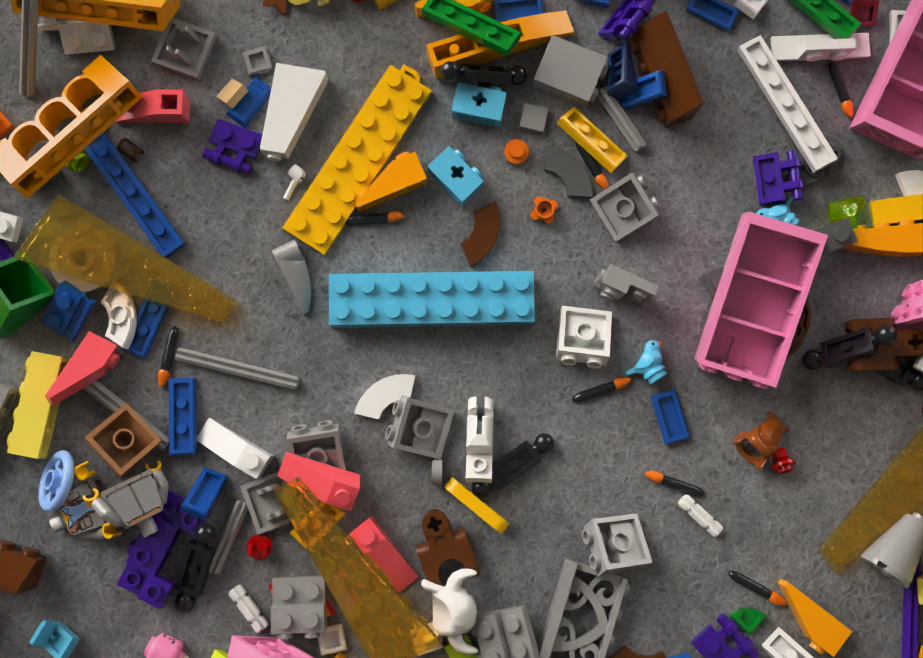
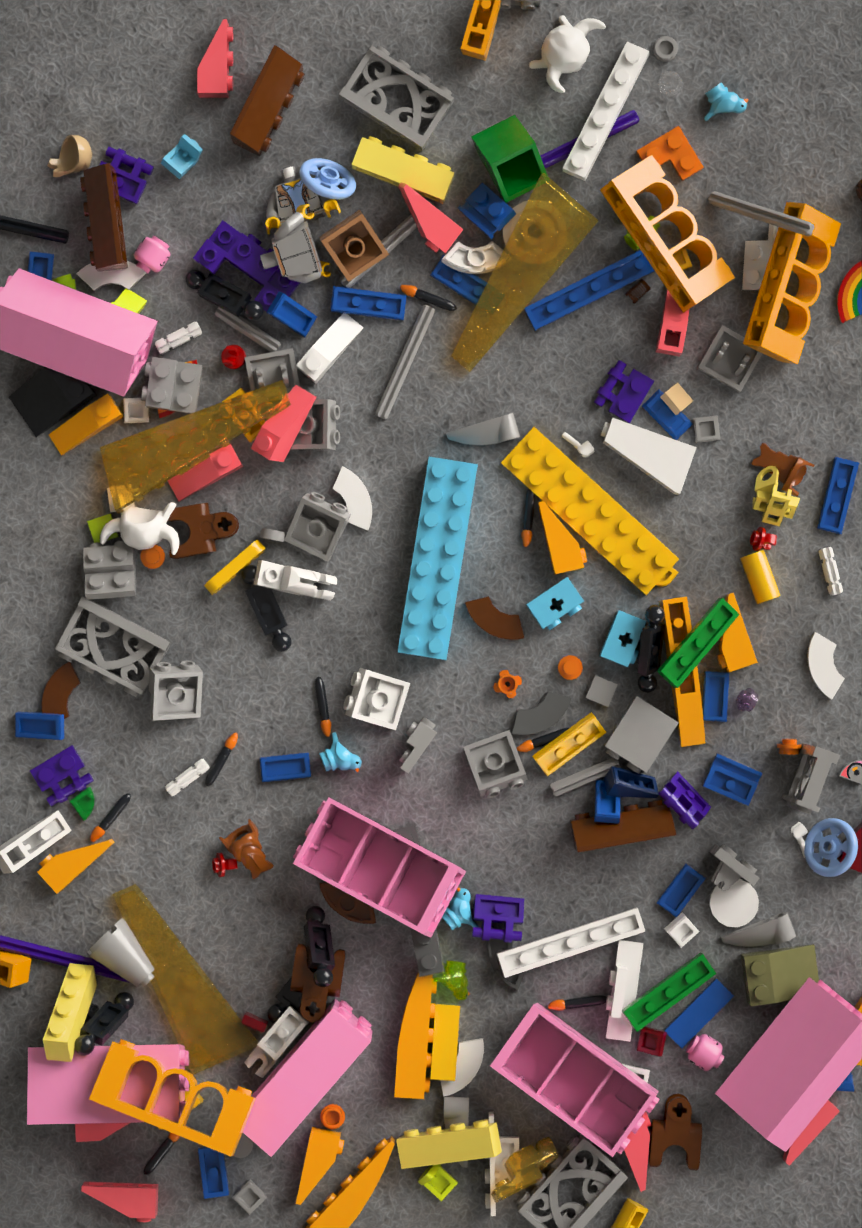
camera: 100 degrees right, 5 degrees up
(481, 592) = (153, 557): none -> orange plate

